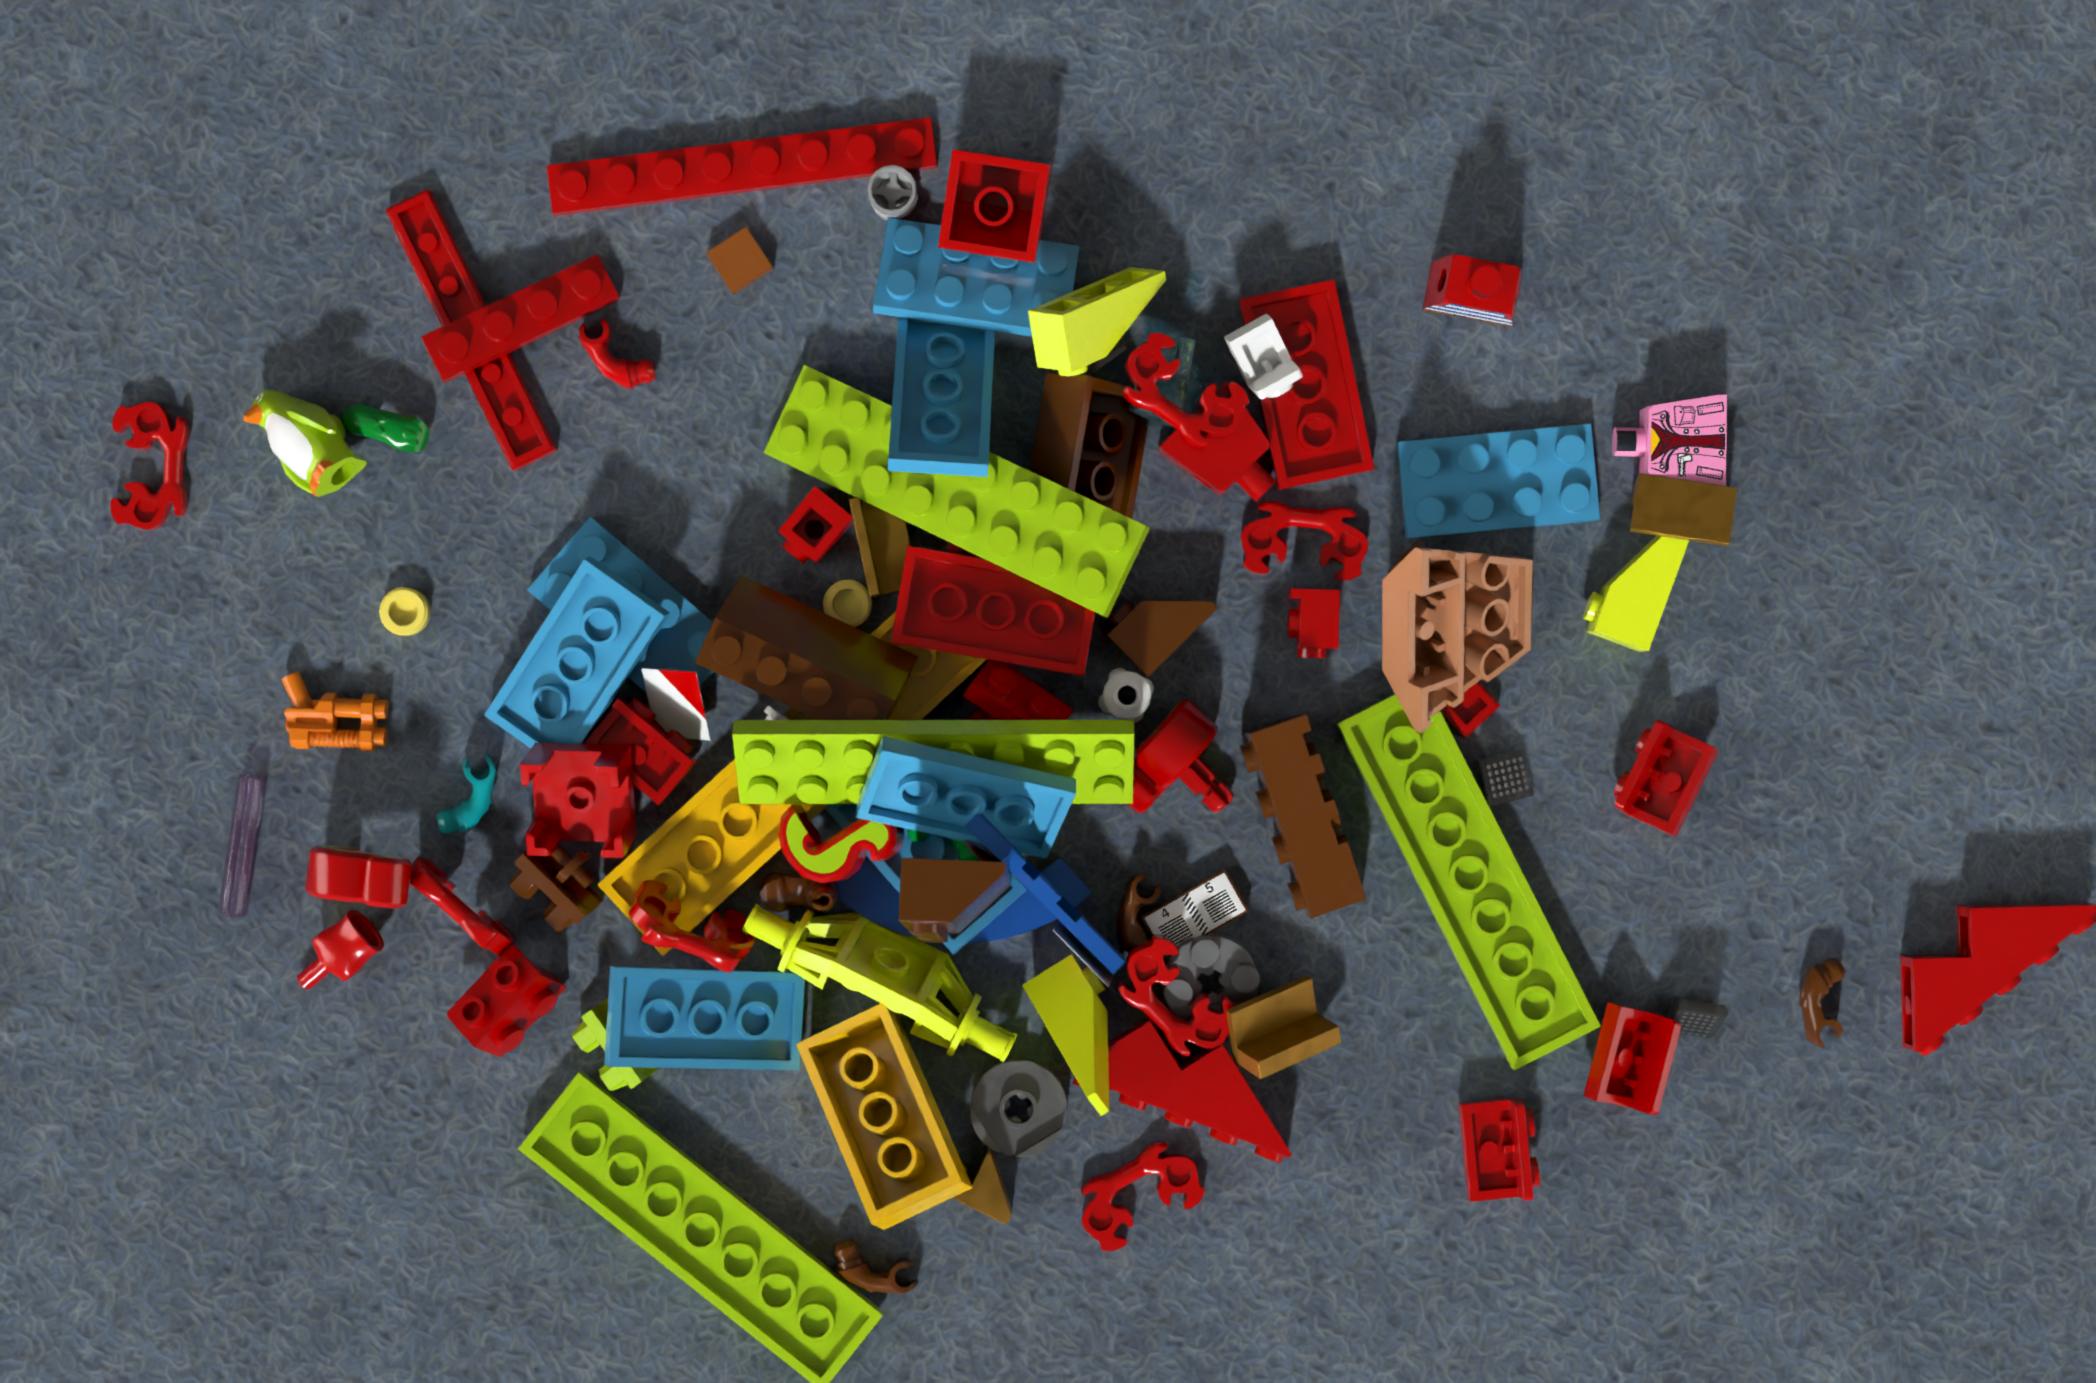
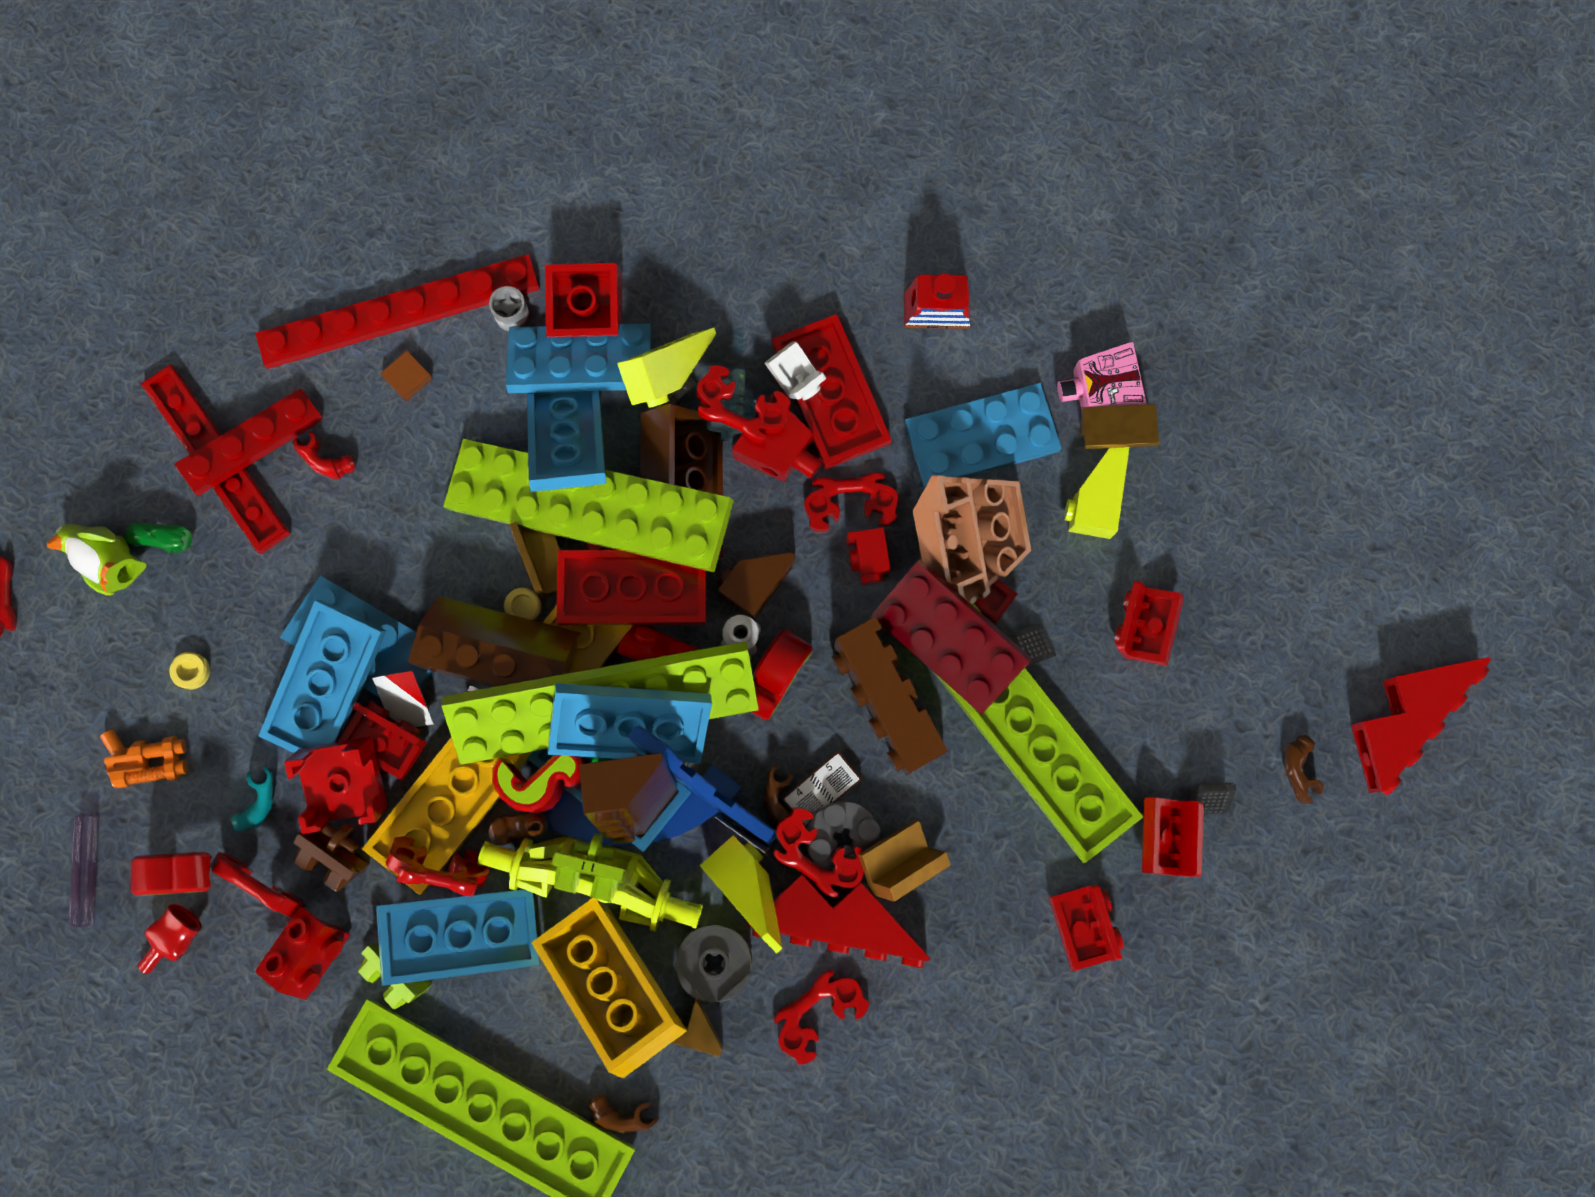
camera: 20 degrees left, 10 degrees down
(820, 508) = (488, 539): red brick -> none
(905, 985) = (606, 876): none -> lime hips
(1202, 780) = (807, 688): red axle -> none
(1400, 753) = (951, 636): none -> dark red plate

